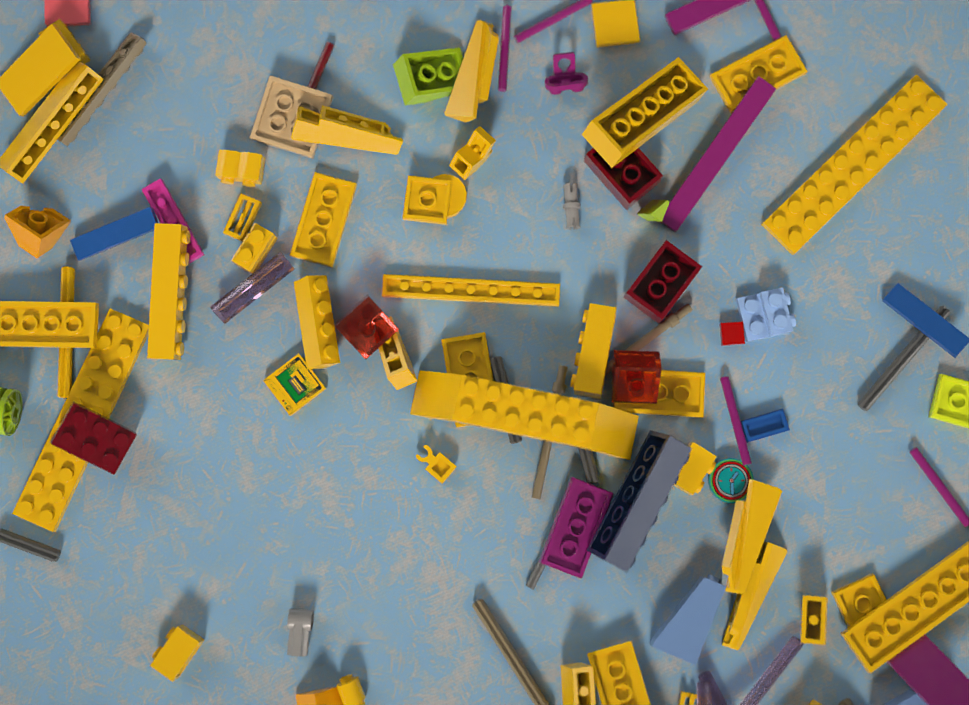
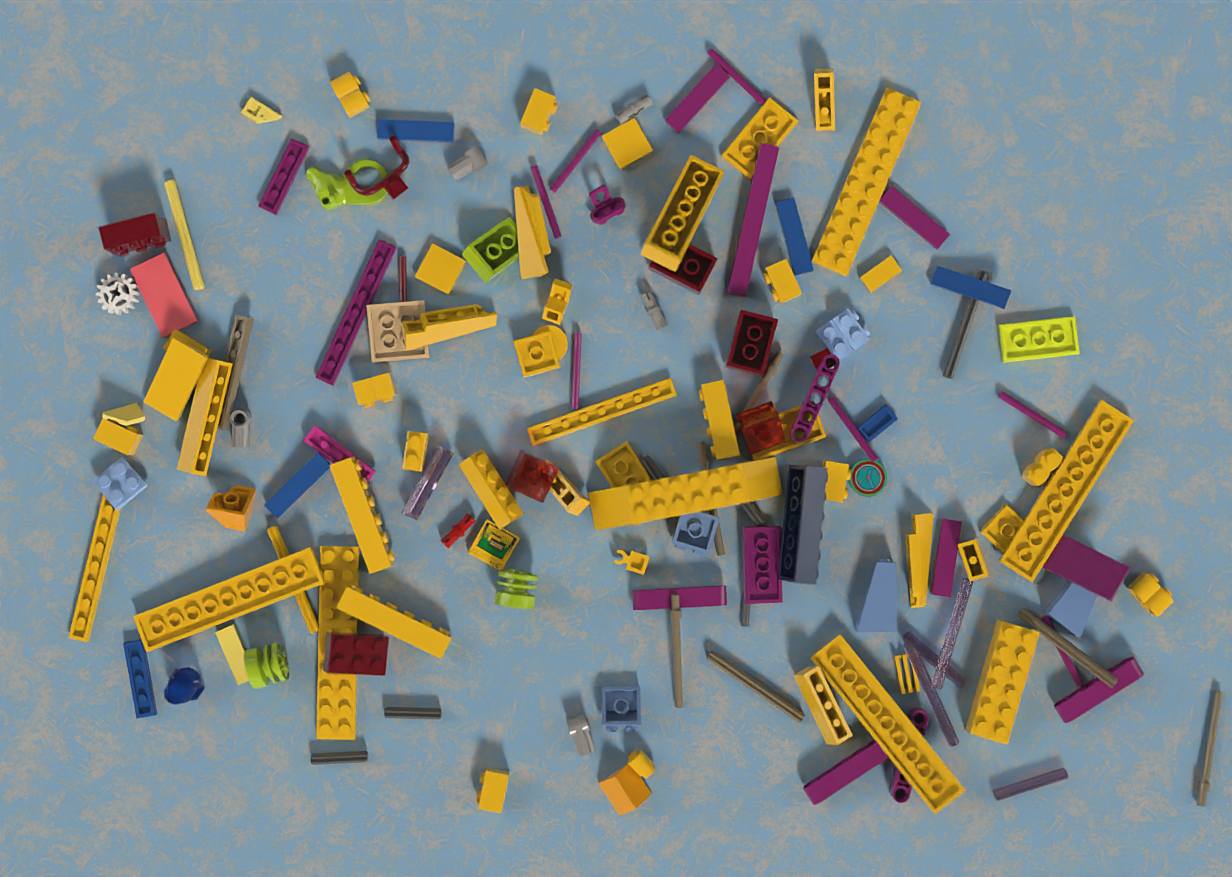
camera: 25 degrees left, 5 degrees up
(80, 152) = (240, 431): none -> light grey piece
(128, 530) = (412, 713): none -> dark grey axle
(150, 420) = (394, 622): none -> yellow brick
(256, 81) = (356, 312): none -> magenta tile
(257, 204) = (401, 428): yellow tile -> none
(263, 353) = (457, 530): none -> red pin
(296, 440) = (516, 589): none -> lime wheel
(323, 219) = (459, 403): yellow tile -> none
(355, 621) = (621, 708): none -> medium blue plate
(364, 72) = (440, 269): none -> yellow tile
(458, 541) = (676, 614): none -> dark tan bar
(462, 236) = (576, 370): none -> magenta bar
(470, 525) = (688, 597): none -> magenta beam
(518, 460) = (695, 532): none -> medium blue plate
(654, 210) = (721, 286): lime slope -> none
(715, 361) = (821, 391): none -> magenta beam
(722, 231) = (782, 282): none -> yellow brick
(748, 533) = (897, 514): yellow wedge -> none
(754, 190) = (794, 236): none -> blue tile
(783, 605) = (946, 557): none -> magenta tile
(832, 267) = (880, 274): none -> yellow tile
(844, 60) = (824, 99): none -> yellow slope
(892, 222) = (914, 217): none -> magenta tile
(932, 546) = (1044, 462): none -> yellow brick

